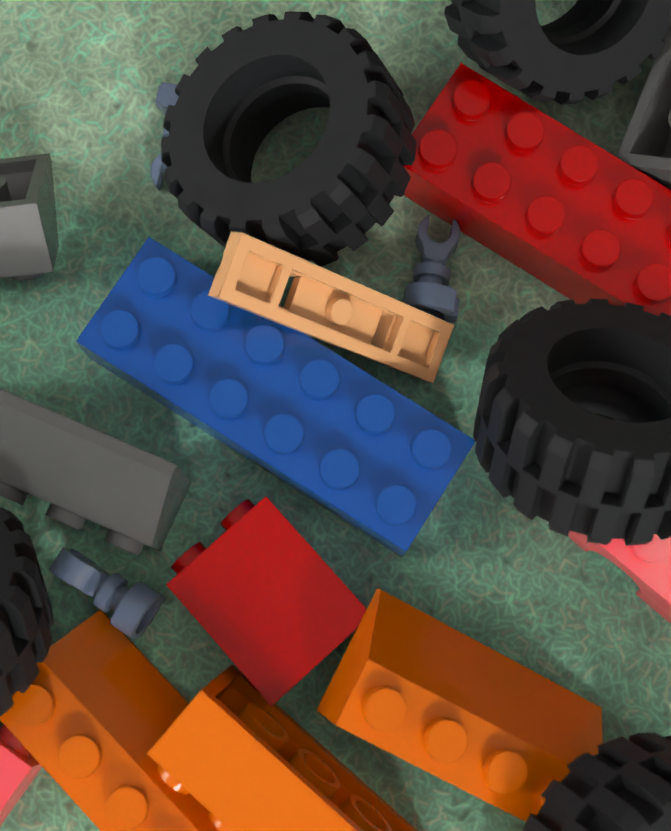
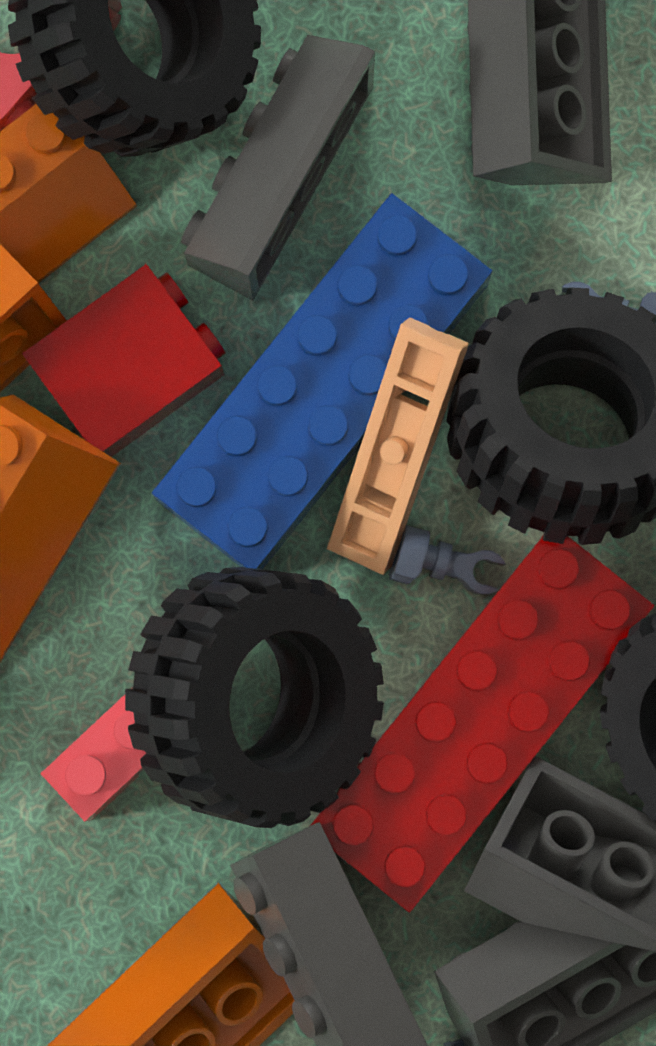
camera: 100 degrees right, 5 degrees up
(132, 607) = (132, 233): sand blue piece -> none

